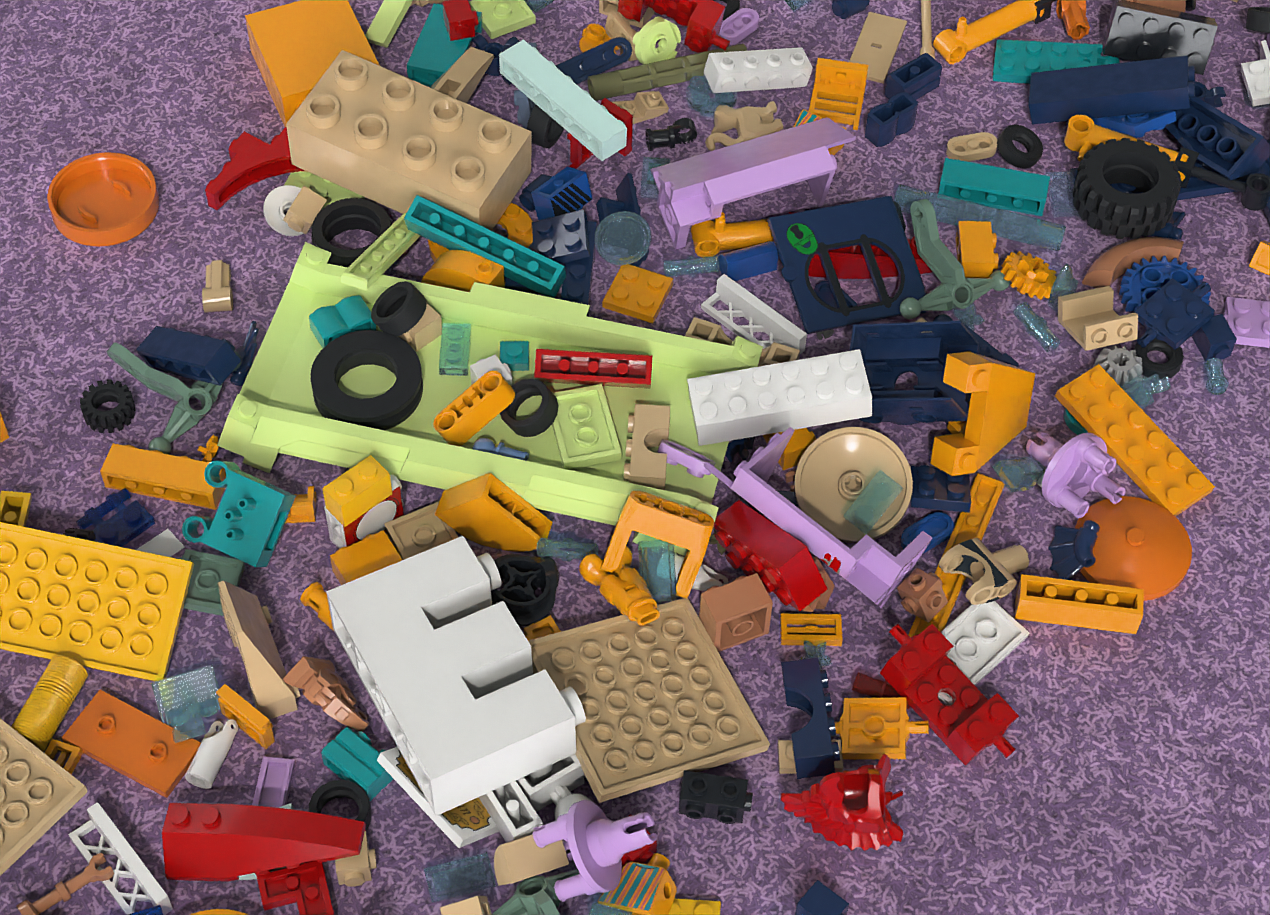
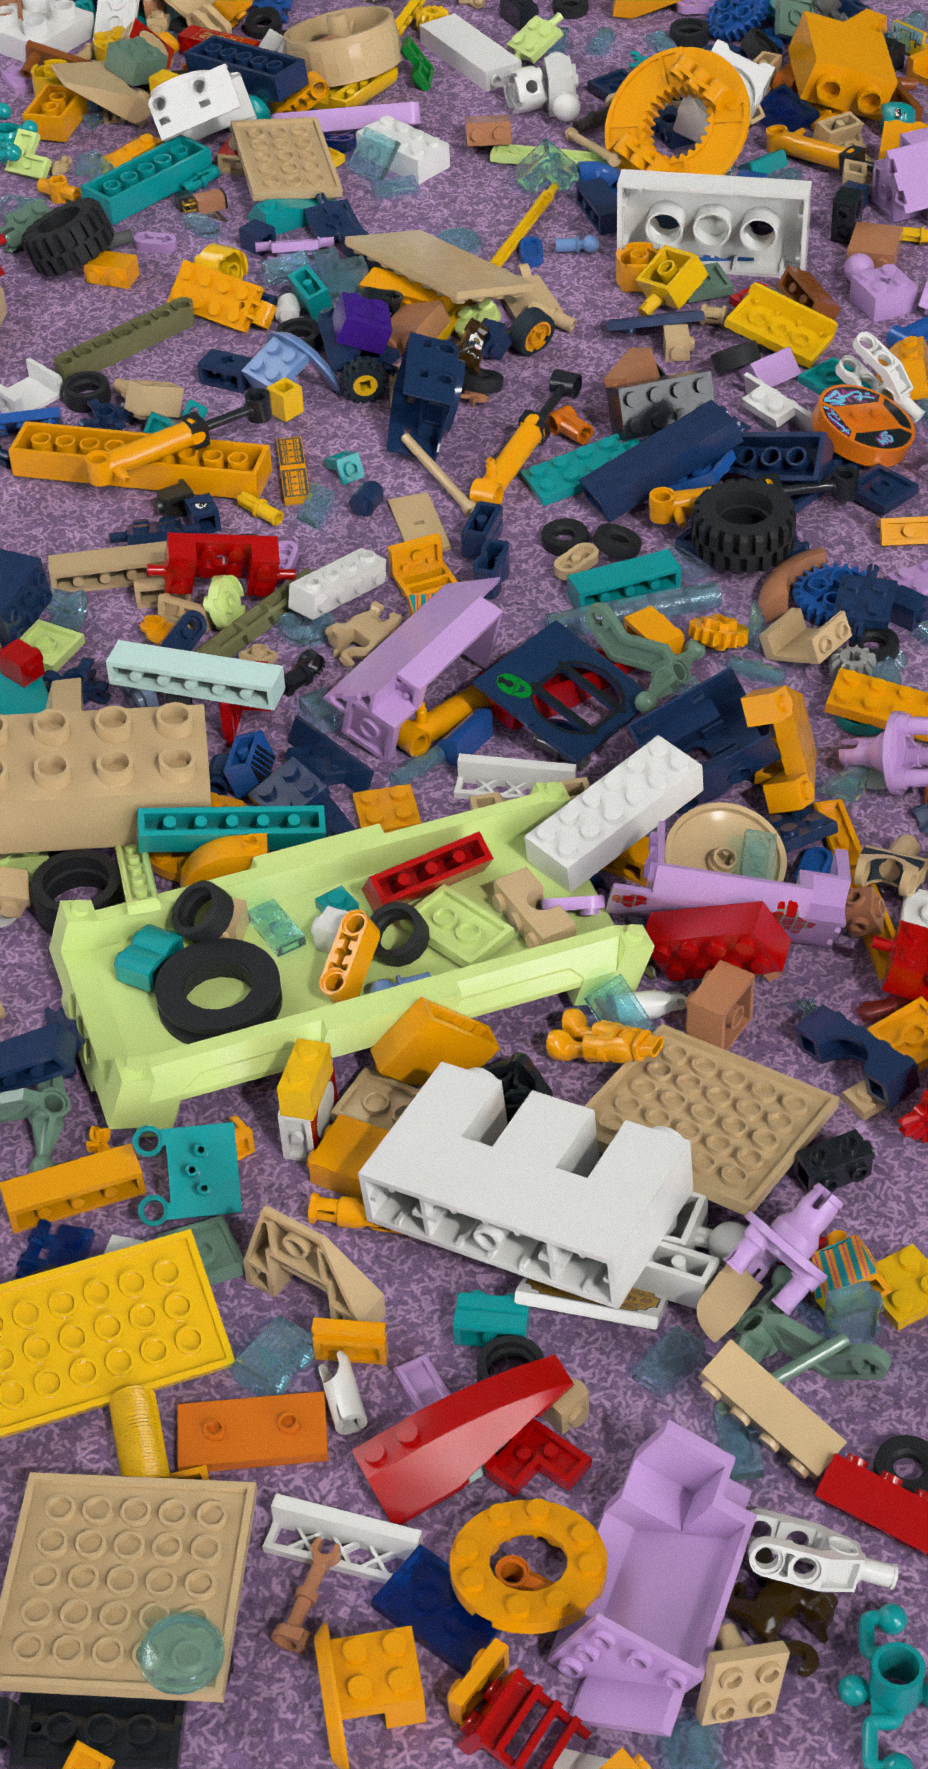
camera: 30 degrees left, 10 degrees down
(188, 724) = (302, 1377): clear light blue tile -> none
(327, 690) = (414, 1275): nougat piece -> none
(552, 547) = (521, 1041): clear light blue pin -> none
(622, 238) = (344, 766): clear light blue piece -> none
(665, 522) = (610, 954): light orange connector -> none
(809, 633) = (786, 1002): light orange tile -> none
(985, 108) = (563, 527): none -> black tyre

